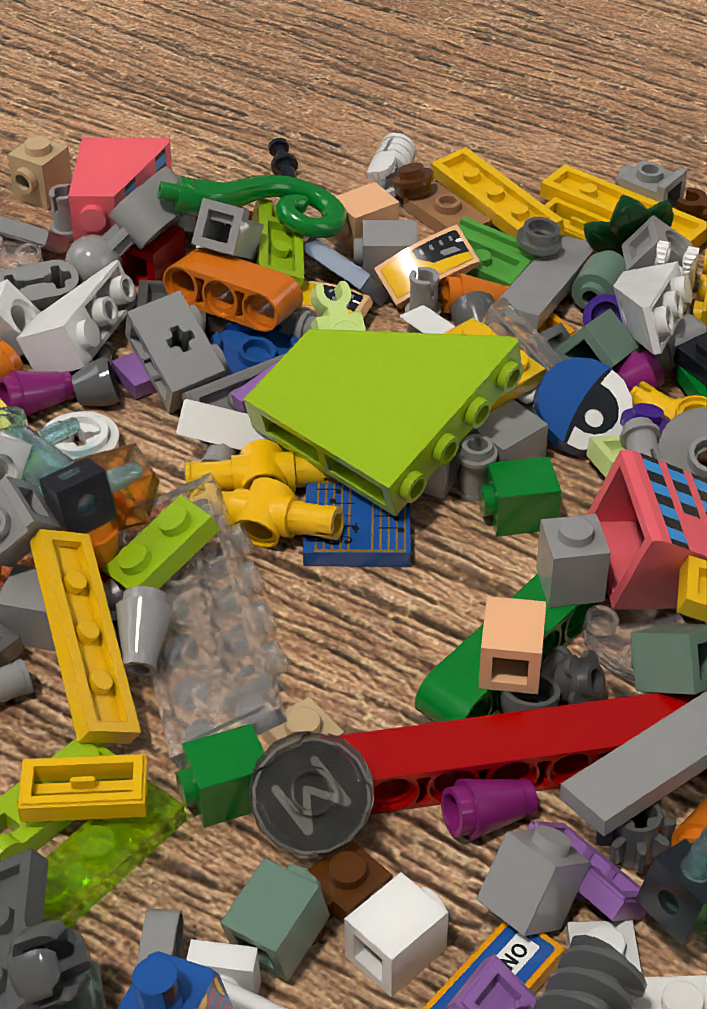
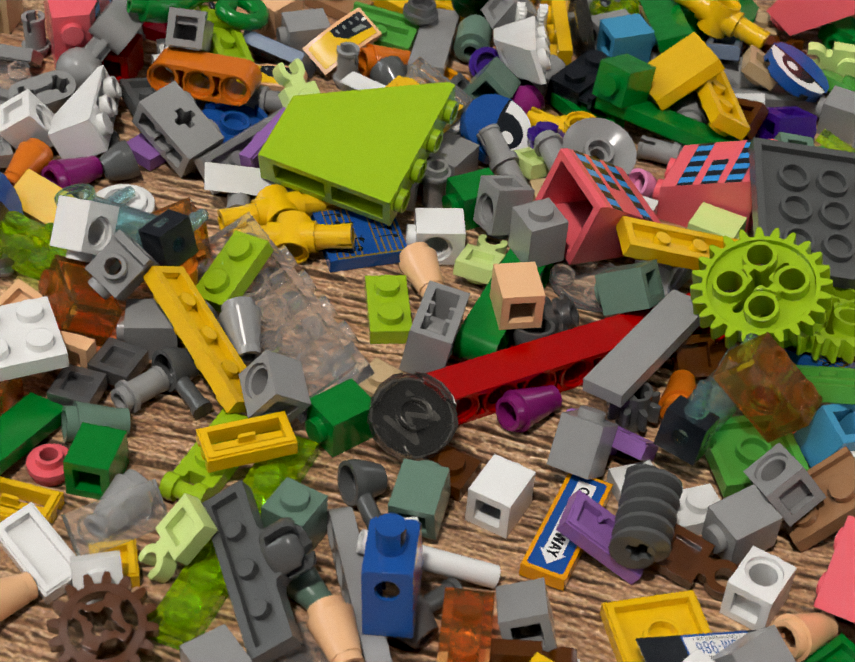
camera: 20 degrees left, 0 degrees up
(46, 678) = (181, 371): none -> dark grey bar
(105, 910) = (300, 503): none -> sand green brick
(145, 717) = (274, 385): none -> light grey brick
(217, 876) = (359, 484): none -> dark grey bar
(354, 630) = (387, 309): none -> lime plate
(386, 674) = (434, 329): none -> light grey brick
(417, 584) = (420, 266): none -> light nougat cone
(453, 539) = (441, 230): none -> white brick
(495, 578) = (477, 261): none -> yellowish green plate
(545, 496) = (495, 202): none -> light grey brick
(576, 450) = (501, 158): none -> light grey pin

